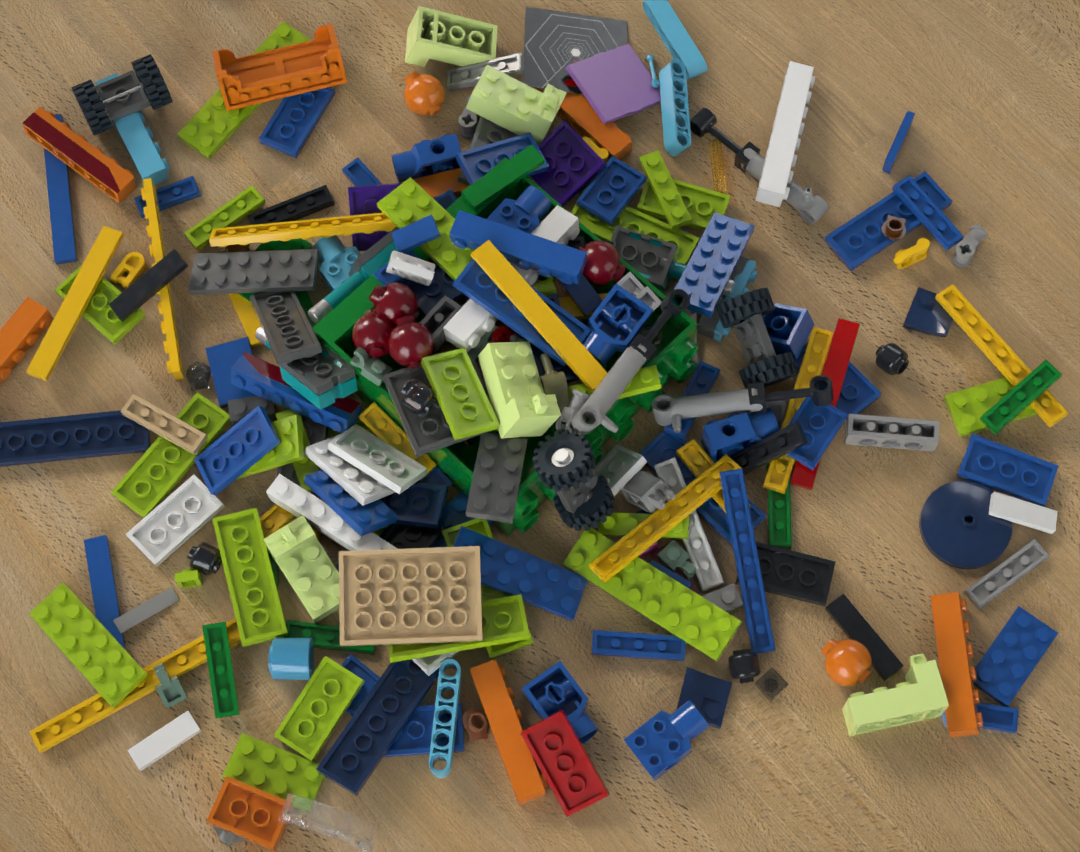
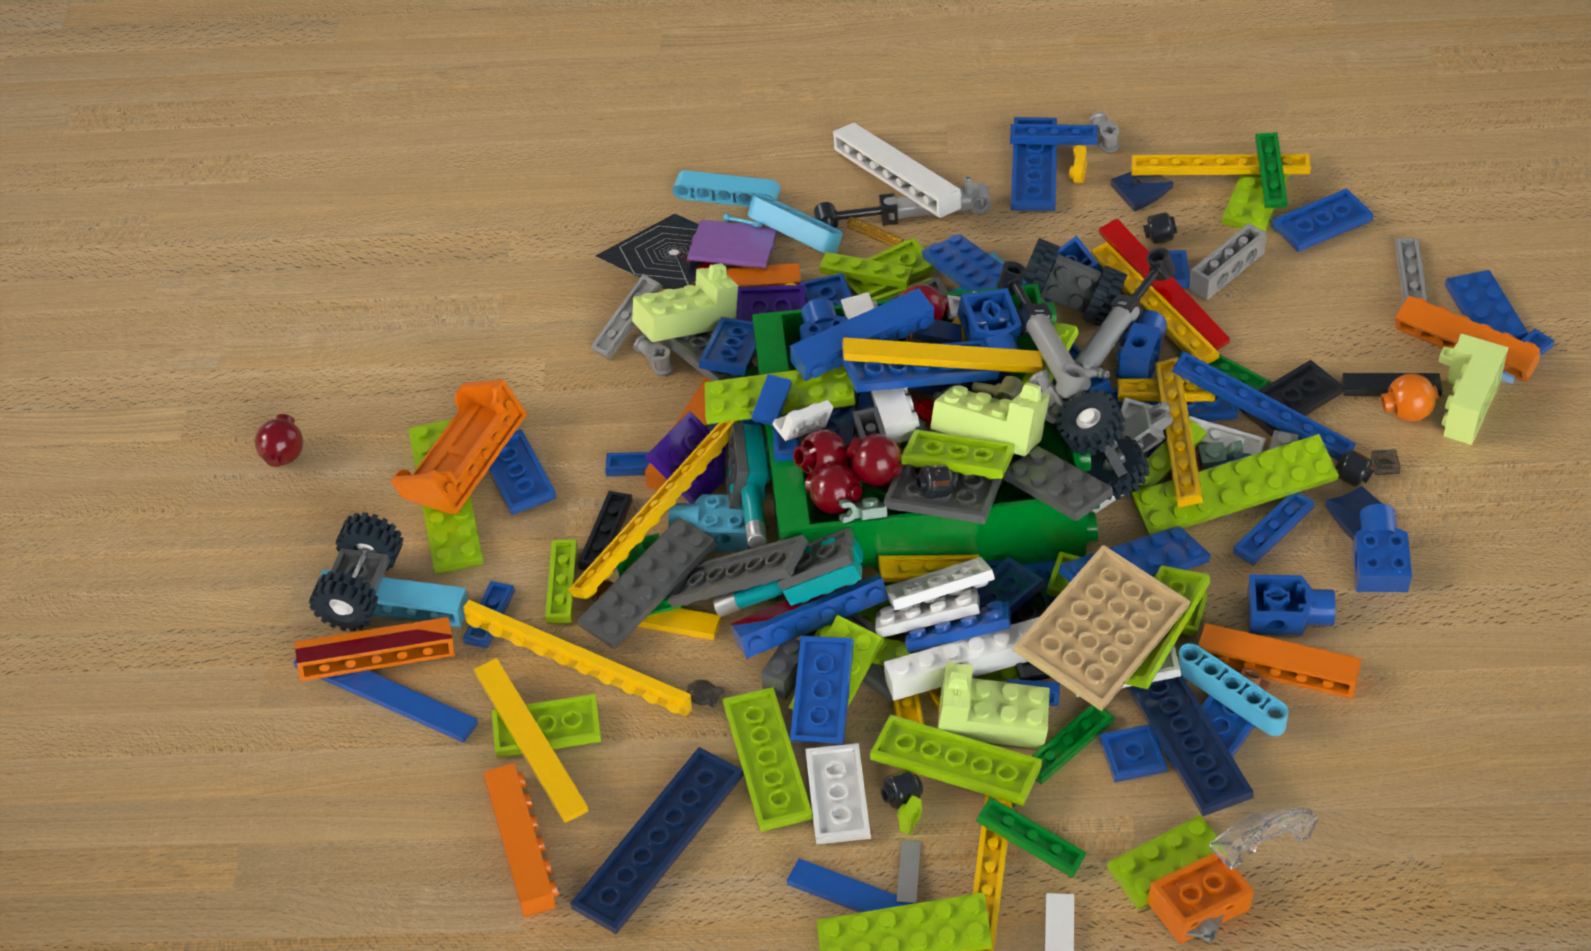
camera: 50 degrees left, 20 degrees down
(132, 263) = (534, 676): yellow plate -> none
(148, 285) = (578, 665): black tile -> none
(164, 424) = (734, 737): tan plate -> none
(169, 690) = (1013, 891): sand green plate -> none
(221, 359) = (725, 665): blue tile -> none
(291, 658) = (1070, 773): dark azure piece -> none
(319, 708) = (1137, 784): lime plate -> none
(423, 94) = (601, 368): orange brick -> none
(427, 158) = (670, 397): blue brick -> none
(449, 39) = (566, 318): yellowish green hinge -> none
(503, 177) = (772, 324): green tile -> none
(564, 763) = (1348, 627): red plate -> none
(770, 448) = (1176, 329): black tile -> none
(819, 427) = (1183, 304): blue tile -> none
(894, 227) = (1048, 158): reddish brown animal -> none
(898, 142) = (971, 118): blue tile -> none
(951, 537) = (1346, 271): dark blue dish -> none
(1023, 512) = (1368, 229): white tile -> none

